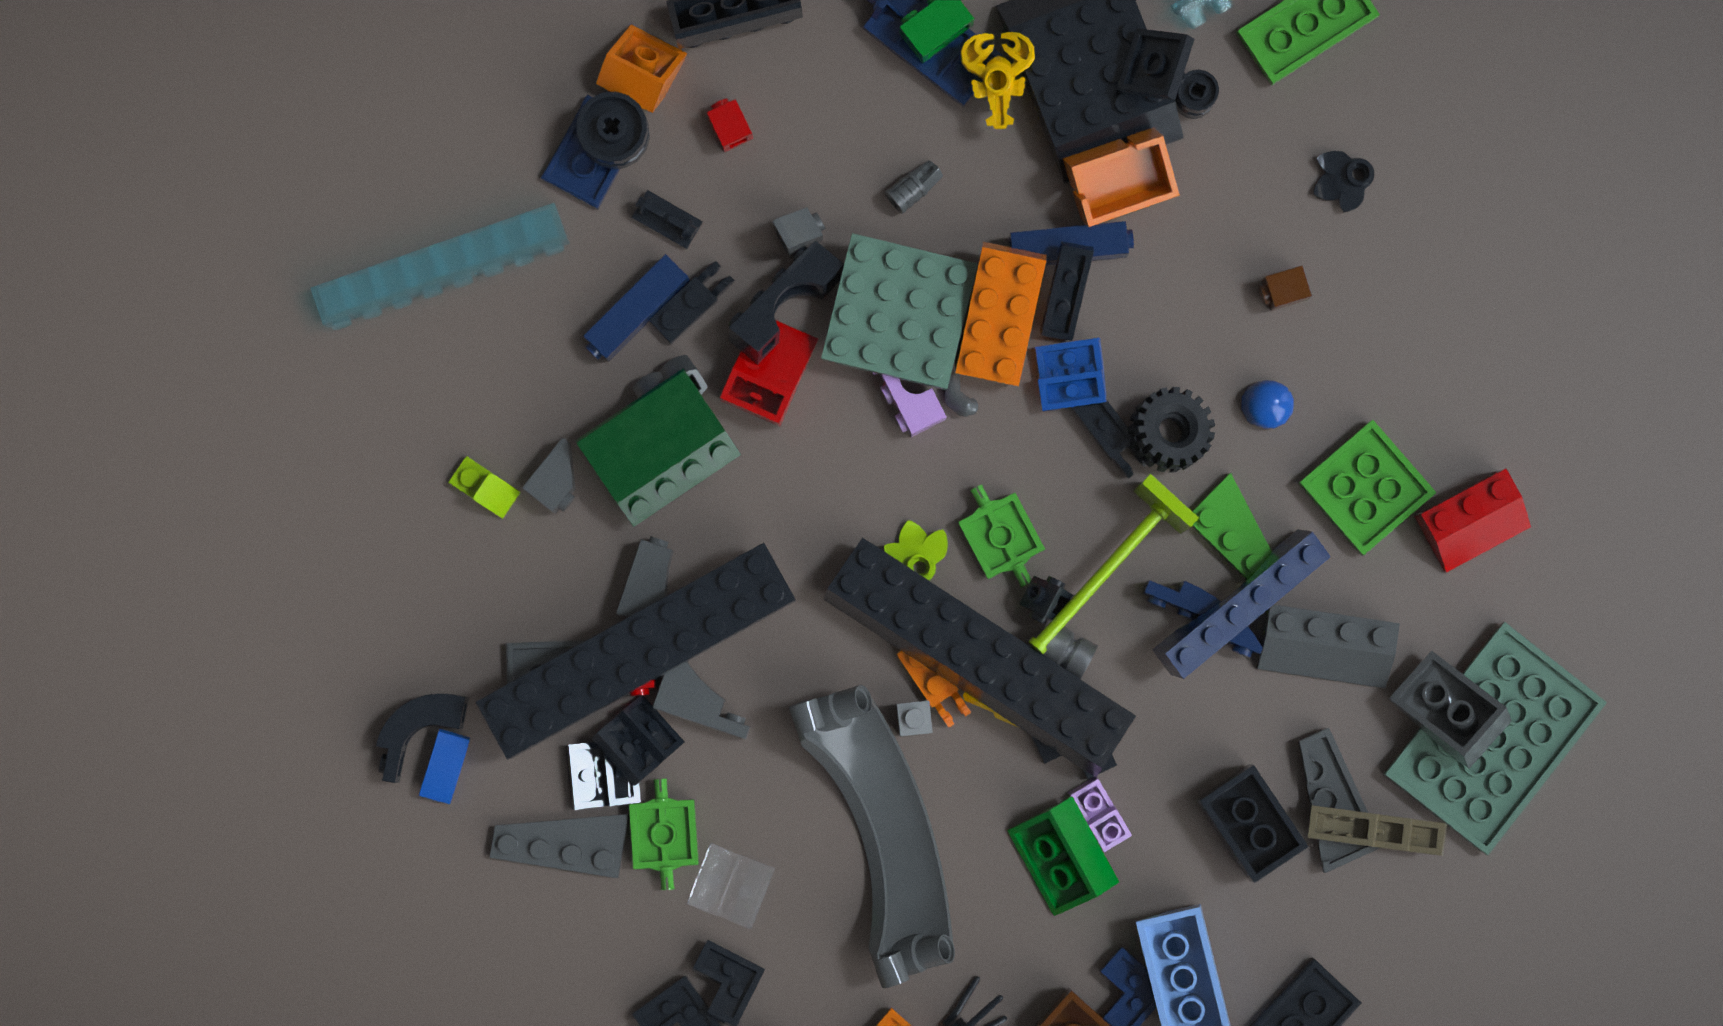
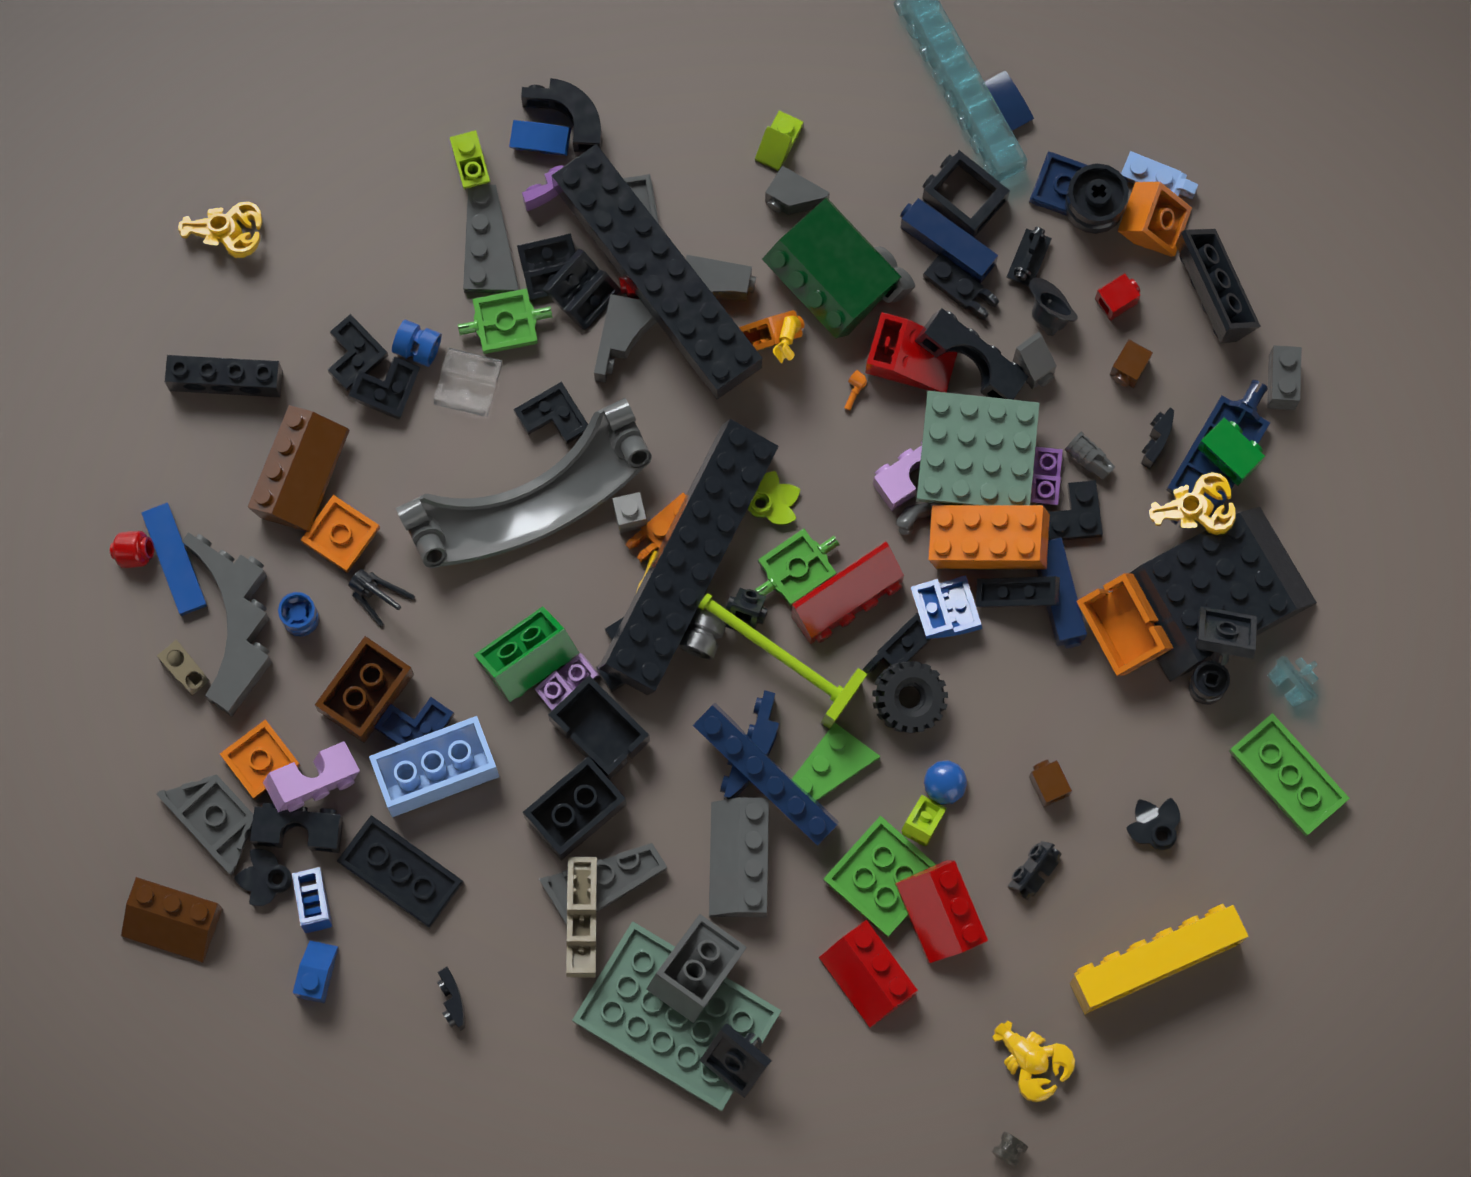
camera: 80 degrees right, 10 degrees down
(465, 852) = (469, 159): none -> lime slope
(473, 214) = (1009, 100): none -> dark blue slope
(514, 777) = (537, 194): none -> medium lavender slope
(563, 315) = (950, 211): none -> black window
(588, 58) = (1147, 170): none -> light blue hinge
(678, 941) = (407, 340): none -> blue wheel
(726, 525) = (777, 331): none -> torso
(733, 202) = (1050, 306): none -> black piece
(773, 791) = (552, 406): none -> black plate
(790, 435) = (859, 381): none -> orange hand
(812, 123) = (1130, 364): none -> reddish brown brick
(895, 100) = (1160, 432): none -> black slope
(930, 237) = (1046, 475): none -> medium lavender slope
(983, 204) = (1084, 515): none -> black plate
(1043, 482) = (847, 594): none -> red slope
(1163, 783) = (599, 727): none -> black piece
(1311, 435) = (923, 820): none -> lime slope
(1388, 330) = (1041, 858): none -> black hinge
(1418, 429) = (941, 911): none -> red slope
(1457, 985) = (455, 1009): none -> black slope
(1501, 199) = (1158, 959): none -> yellow brick
(1561, 677) = (736, 1059): none -> black tile
(1590, 352) = (1033, 1060): none -> yellow animal
(1684, 393) = (1010, 1149): none -> clear smoke wheel

